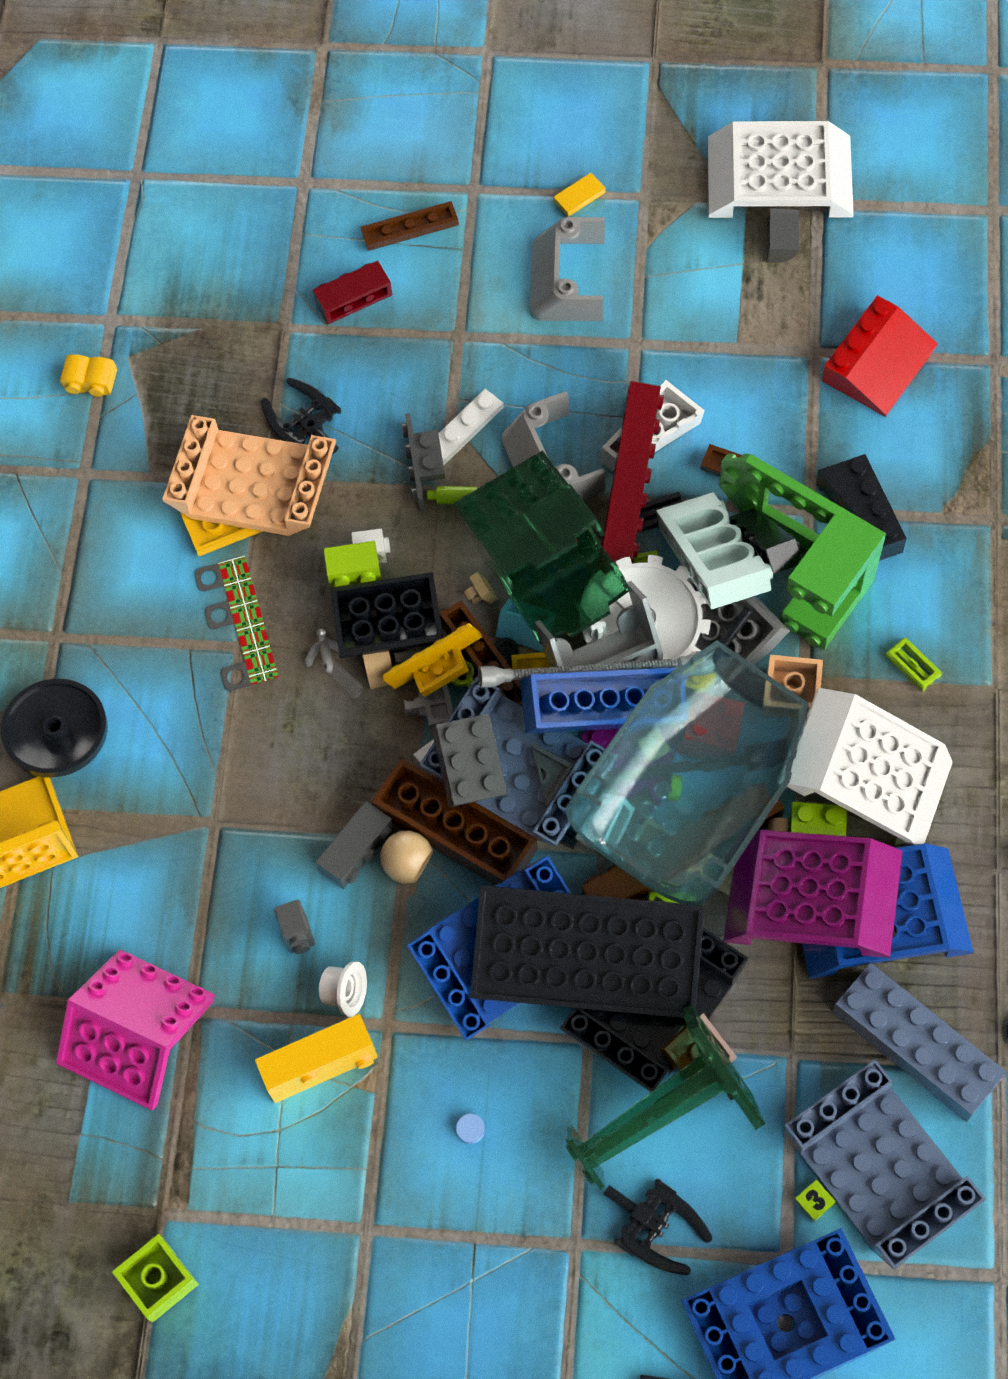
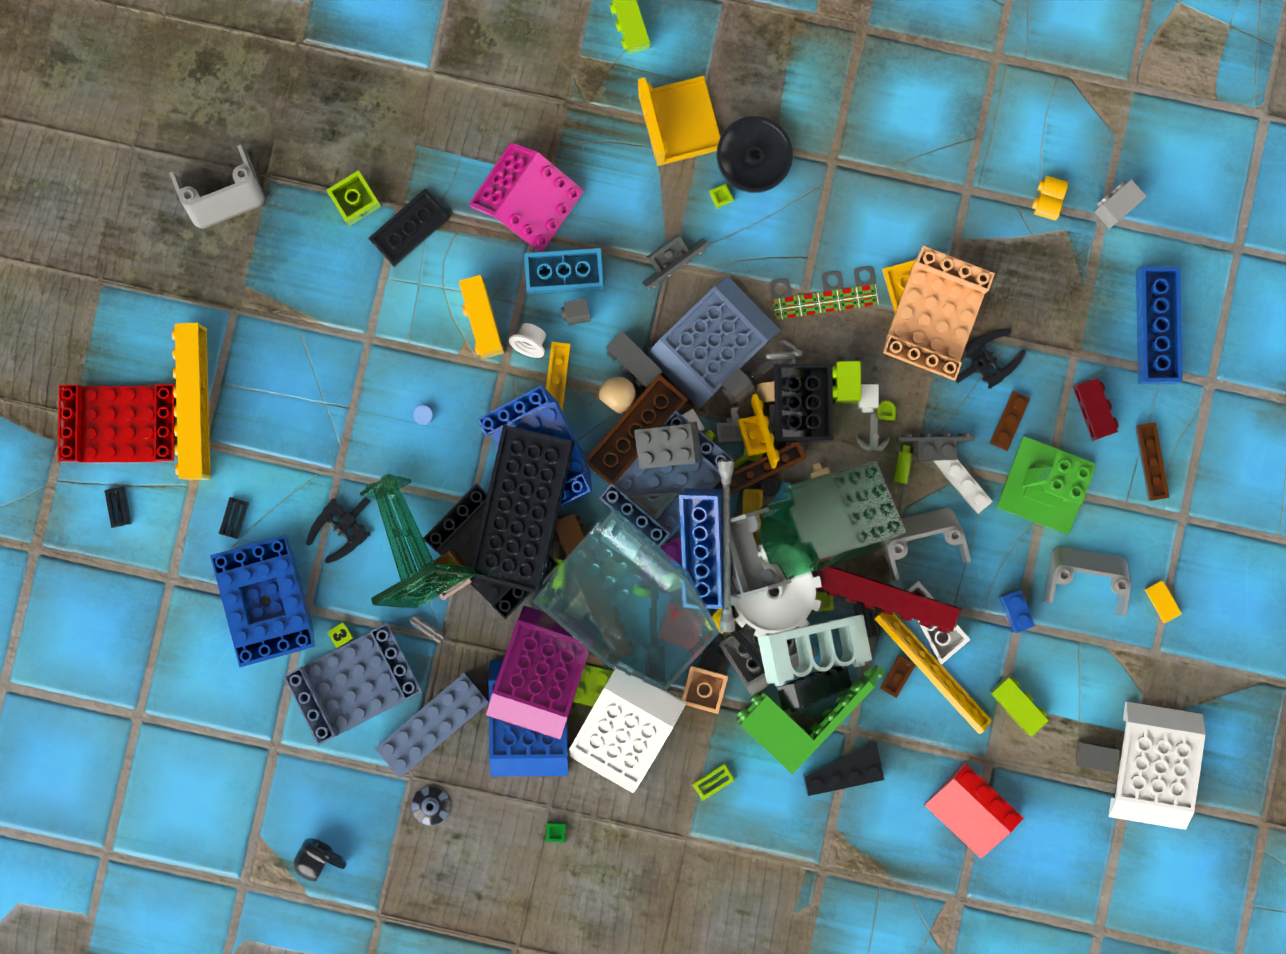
camera: 95 degrees right, 20 degrees up
(90, 295) = (1115, 207): none -> light grey brick
(114, 767) = (721, 196): none -> lime tile
(194, 1192) = (409, 227): none -> black tile
(207, 816) = (671, 257): none -> dark grey bracket
(223, 947) = (554, 262): none -> dark azure brick
(239, 236) = (1159, 325): none -> blue brick
(320, 744) = (712, 341): none -> sand blue slope
(376, 700) = (737, 387): none -> dark grey brick
(377, 946) = (558, 370): none -> yellow plate
(379, 385) = (1009, 421): none -> reddish brown plate
(388, 523) = (886, 411): none -> lime tile
(428, 528) = (873, 437): none -> light grey piece
(450, 329) = (1046, 485): none -> bright green piece
(619, 342) = (1016, 611): none -> blue brick
(712, 424) = (934, 671): none -> yellow plate
(738, 325) = (1019, 705): none -> lime brick
(781, 1074) = (427, 628): none -> light grey axle

